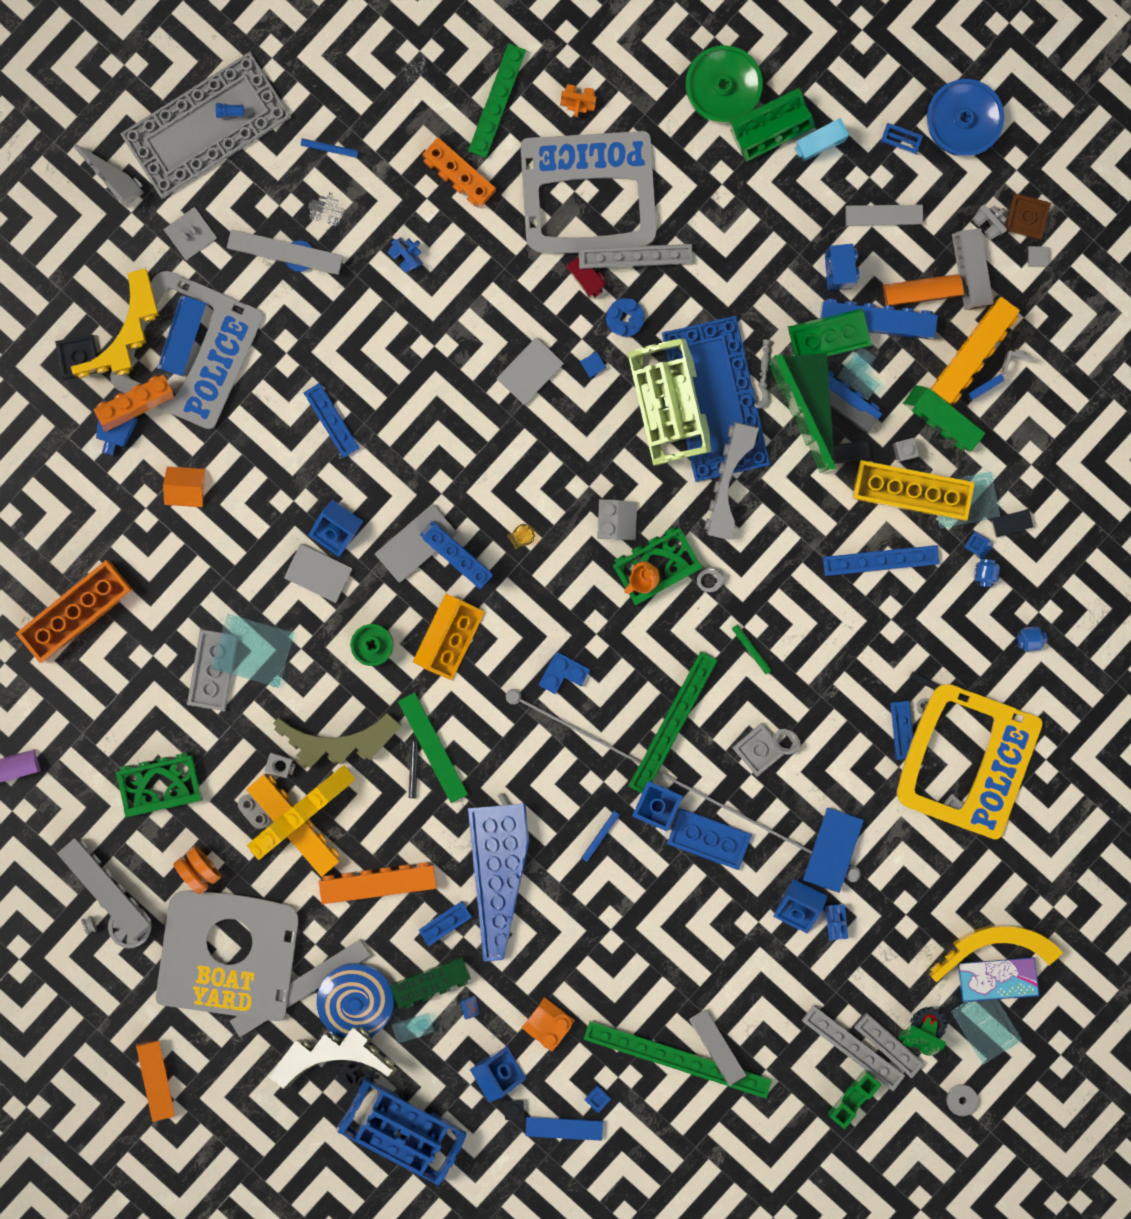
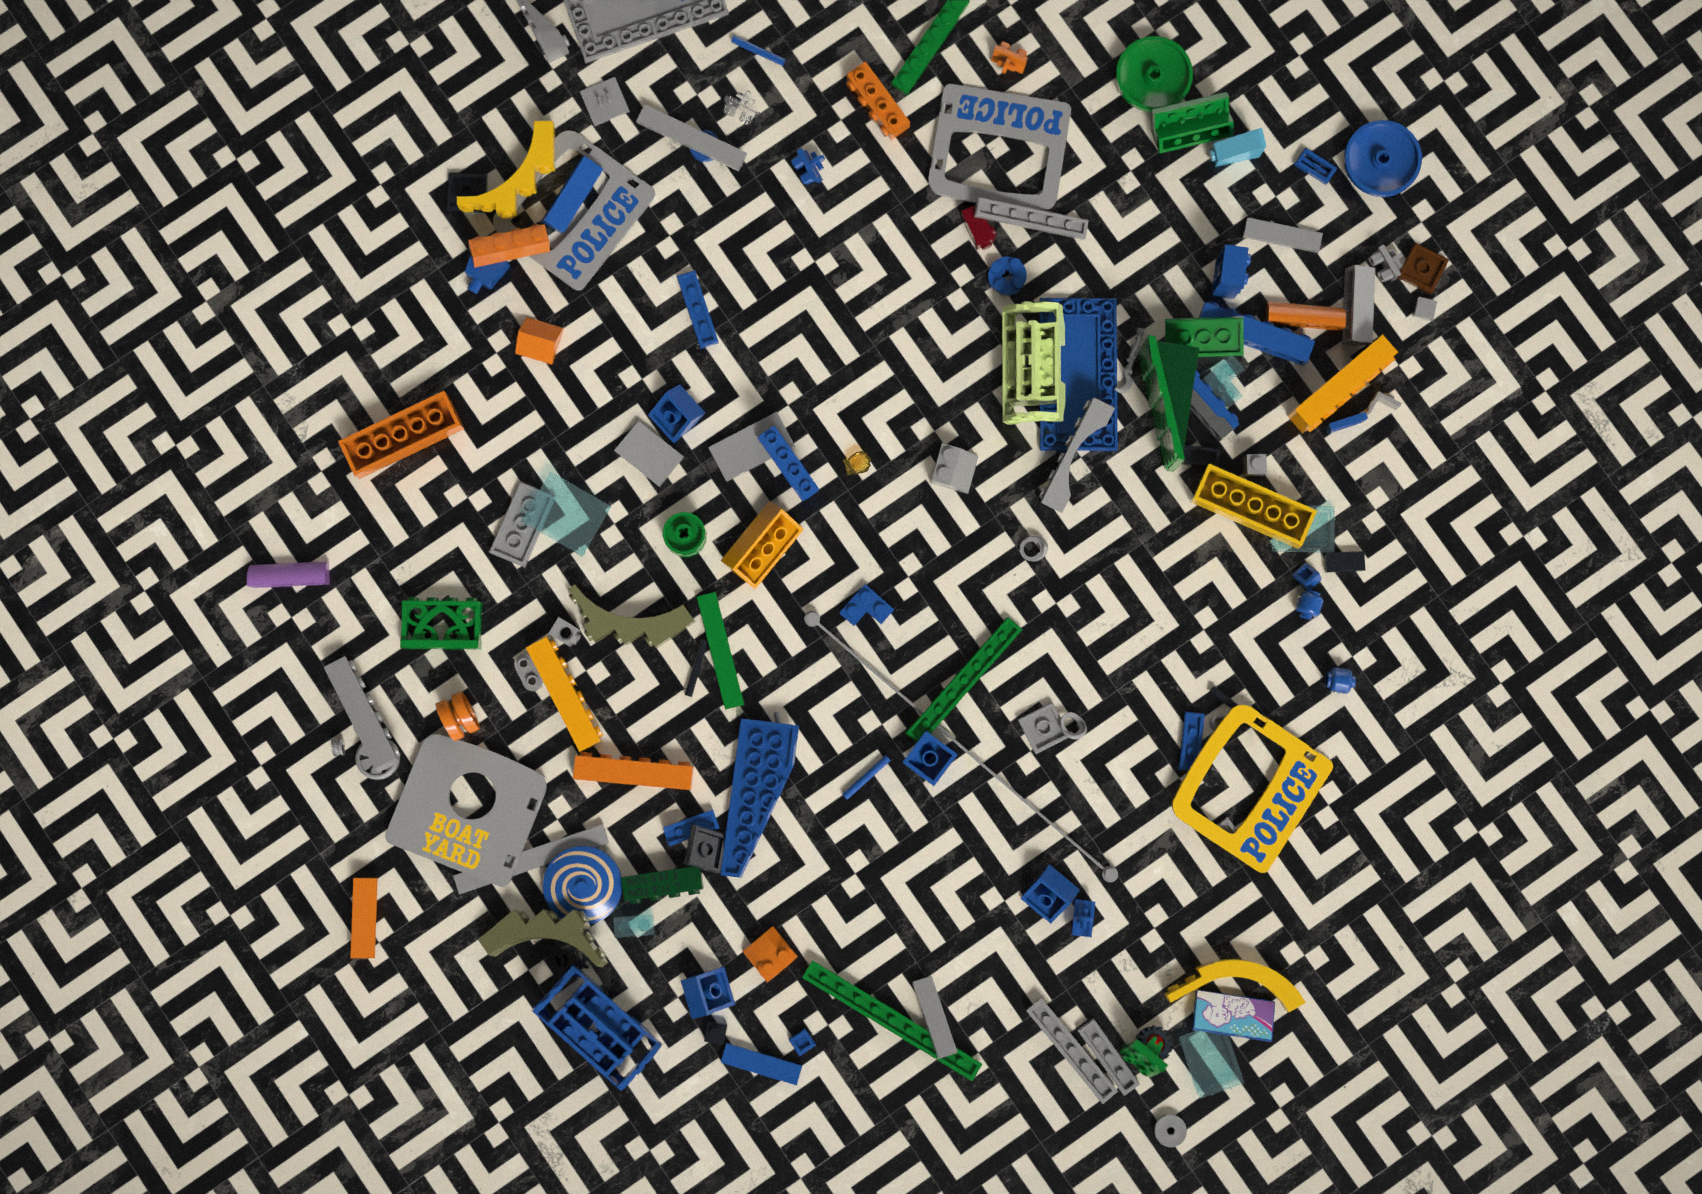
camera: 10 degrees right, 5 degrees down
(301, 812) = (574, 681): yellow arch -> none
(463, 941) = (705, 849): none -> black tile
(469, 1007) = (695, 918): blue slope -> none
(530, 371) = (902, 306): light grey tile -> none
(592, 364) = (965, 314): blue tile -> none
(643, 578) = (967, 530): orange hair -> none
(683, 567) = (1009, 531): green fence -> none
(709, 839) = (974, 805): blue tile -> none
(751, 649) = (1058, 627): green bar -> none
(833, 850) = (1095, 845): blue tile -> none
(860, 1090) = (1056, 1105): green arch -> none
(881, 560) = (1206, 569): blue tile -> none
(943, 417) = (1299, 442): green wedge -> none

